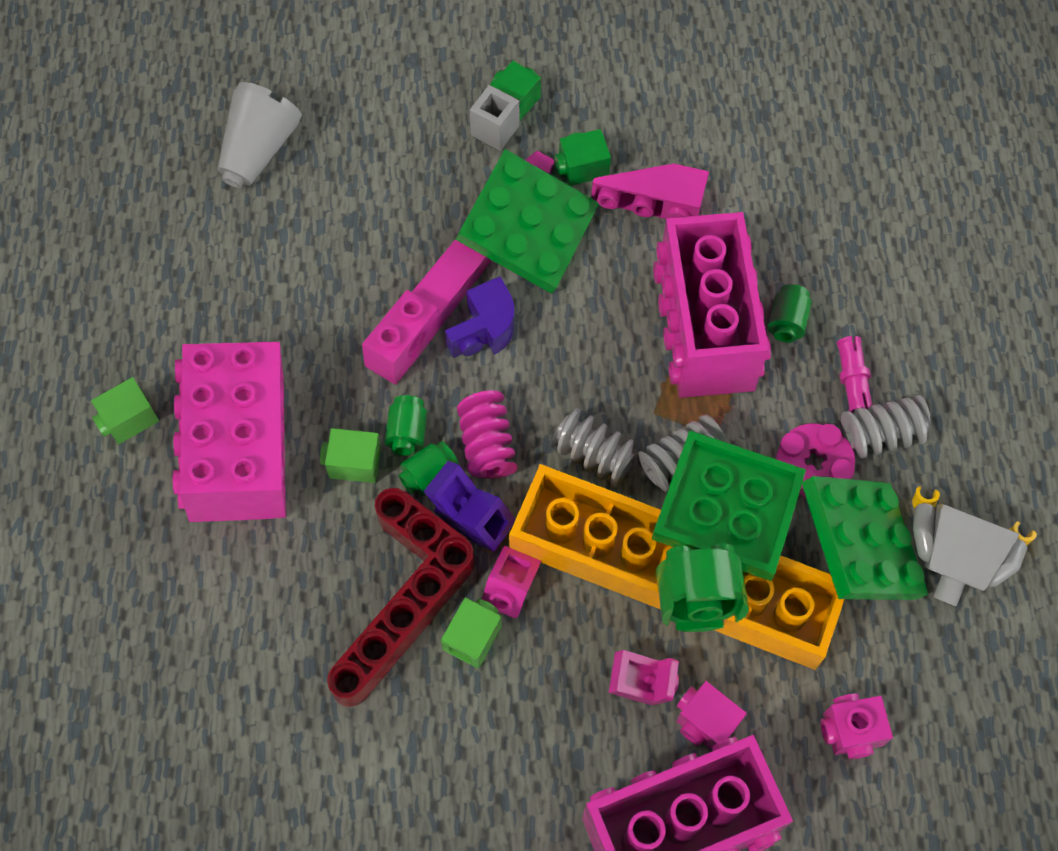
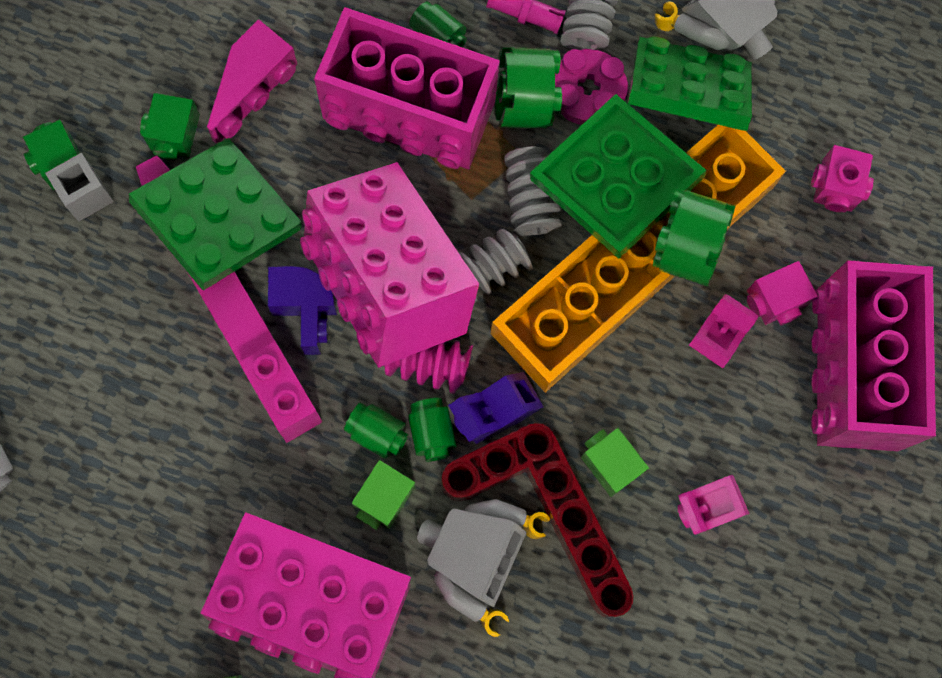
camera: 70 degrees left, 10 degrees up
(333, 549) = (476, 554): none -> light grey torso
(473, 737) = (712, 505): none -> dark pink bracket
(510, 581) = (579, 404): dark pink bracket -> none
(541, 353) = (387, 264): none -> dark pink brick
(775, 400) = (527, 87): none -> green brick

